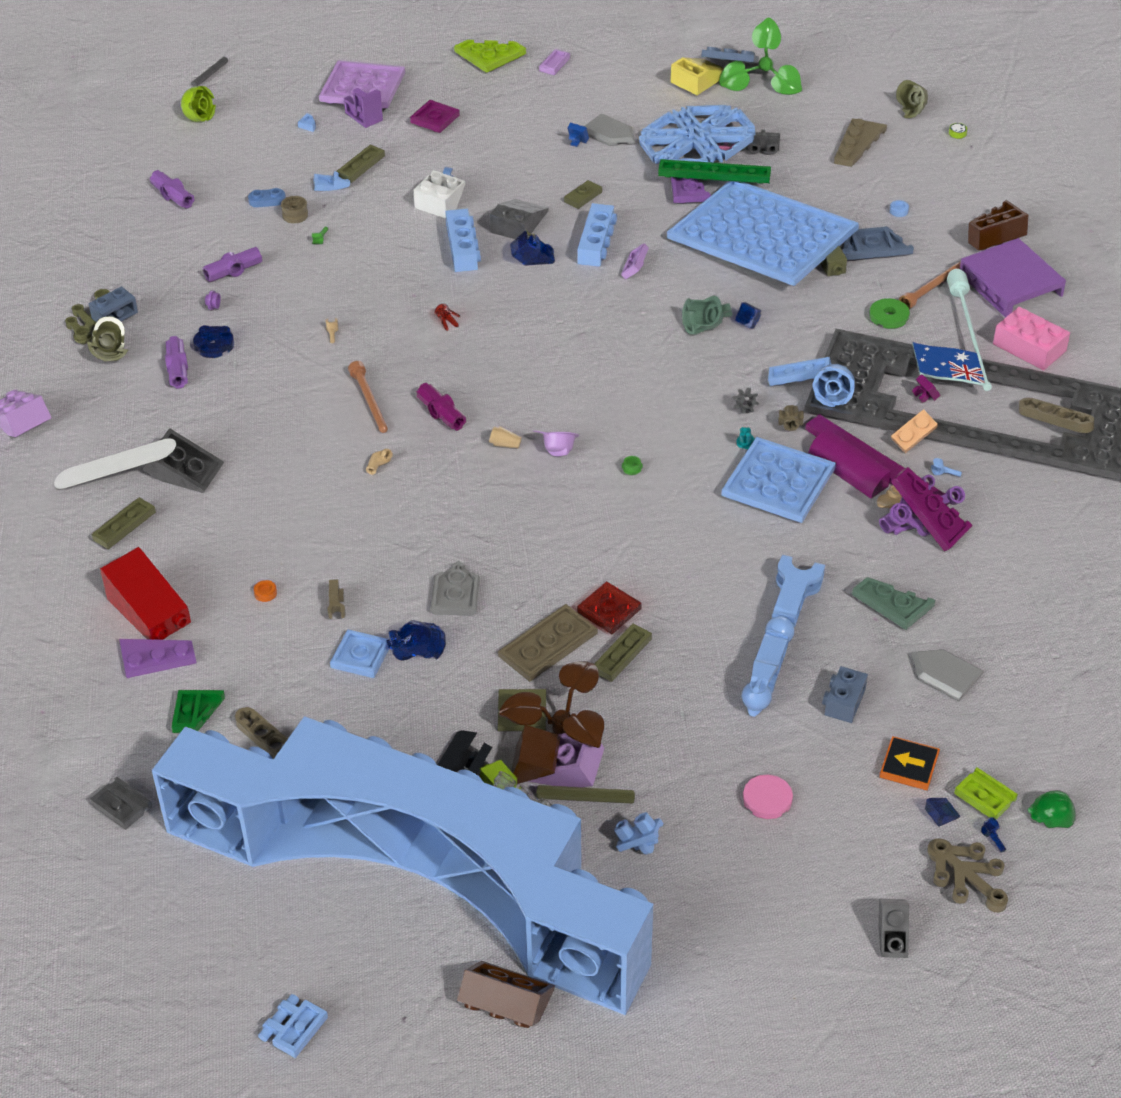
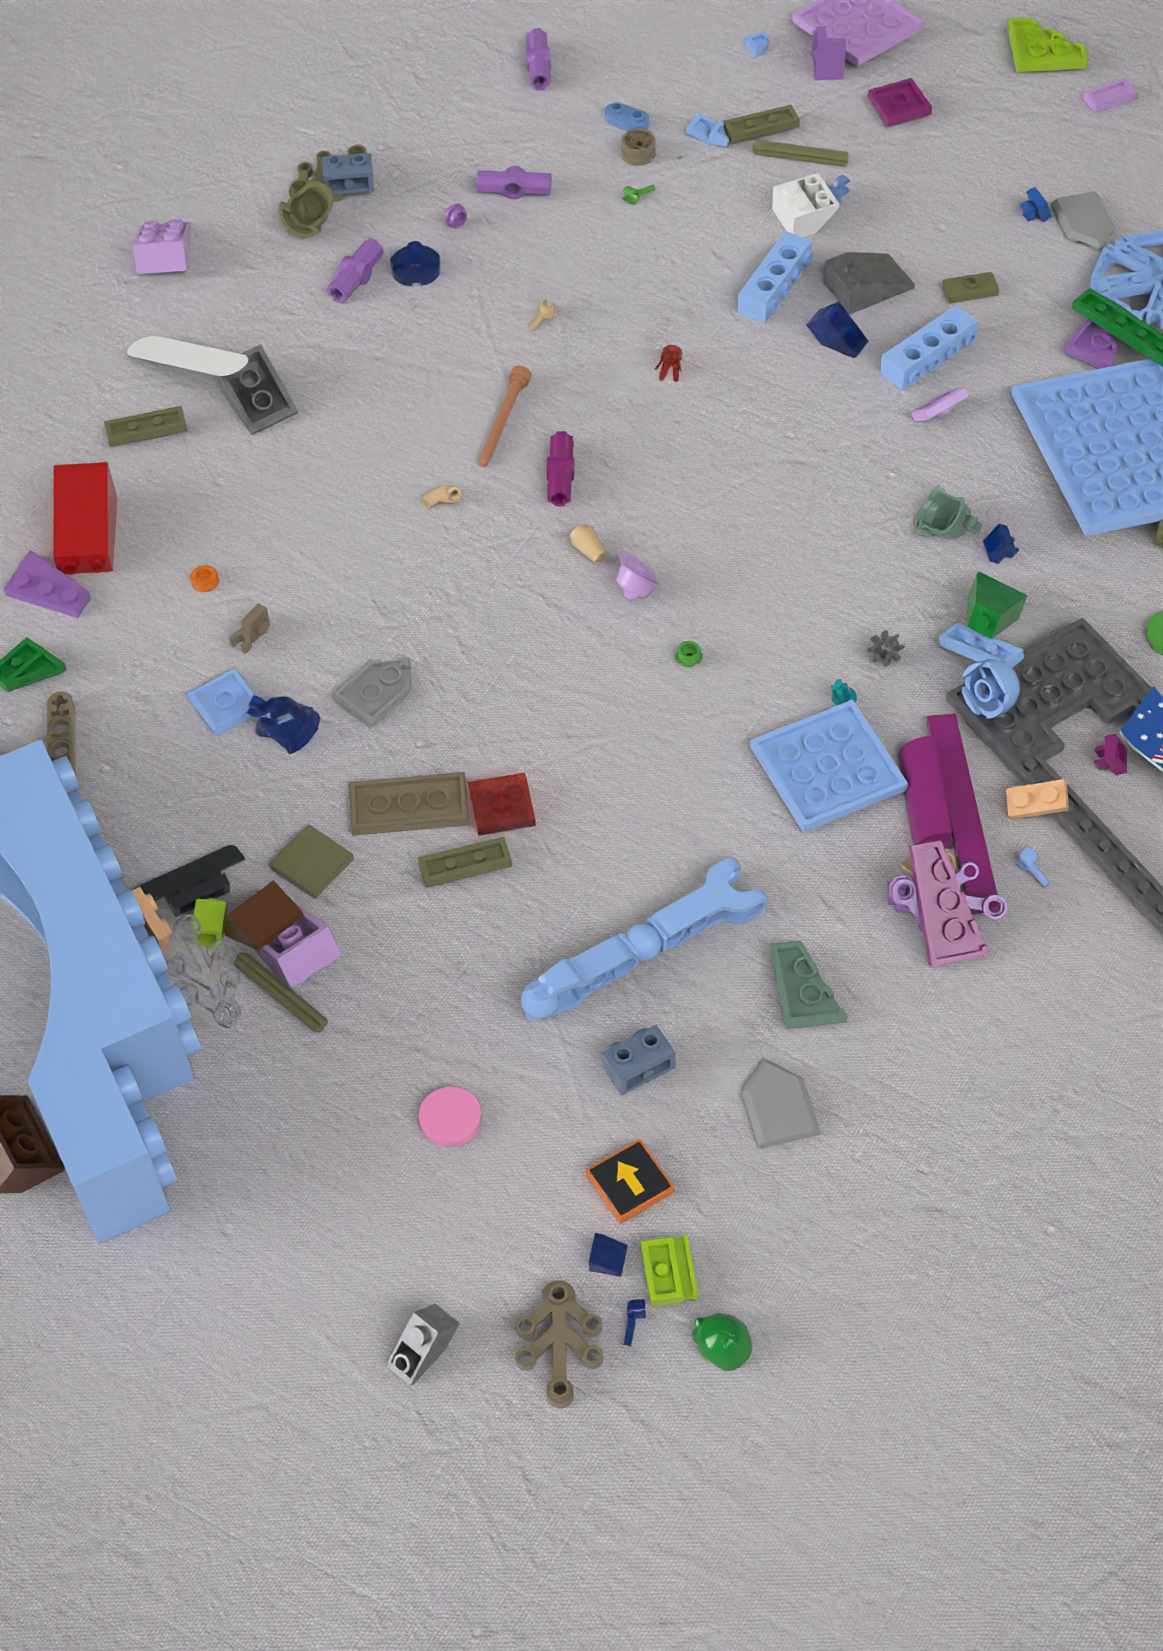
camera: 40 degrees right, 10 degrees up
(401, 169) = (800, 152): none -> olive axle
(584, 727) = (322, 919): reddish brown plant -> none
(641, 836) = (277, 1069): light blue hips -> none
(781, 346) = (993, 605): none -> green slope
(791, 417) = (915, 699): dark tan gear -> none

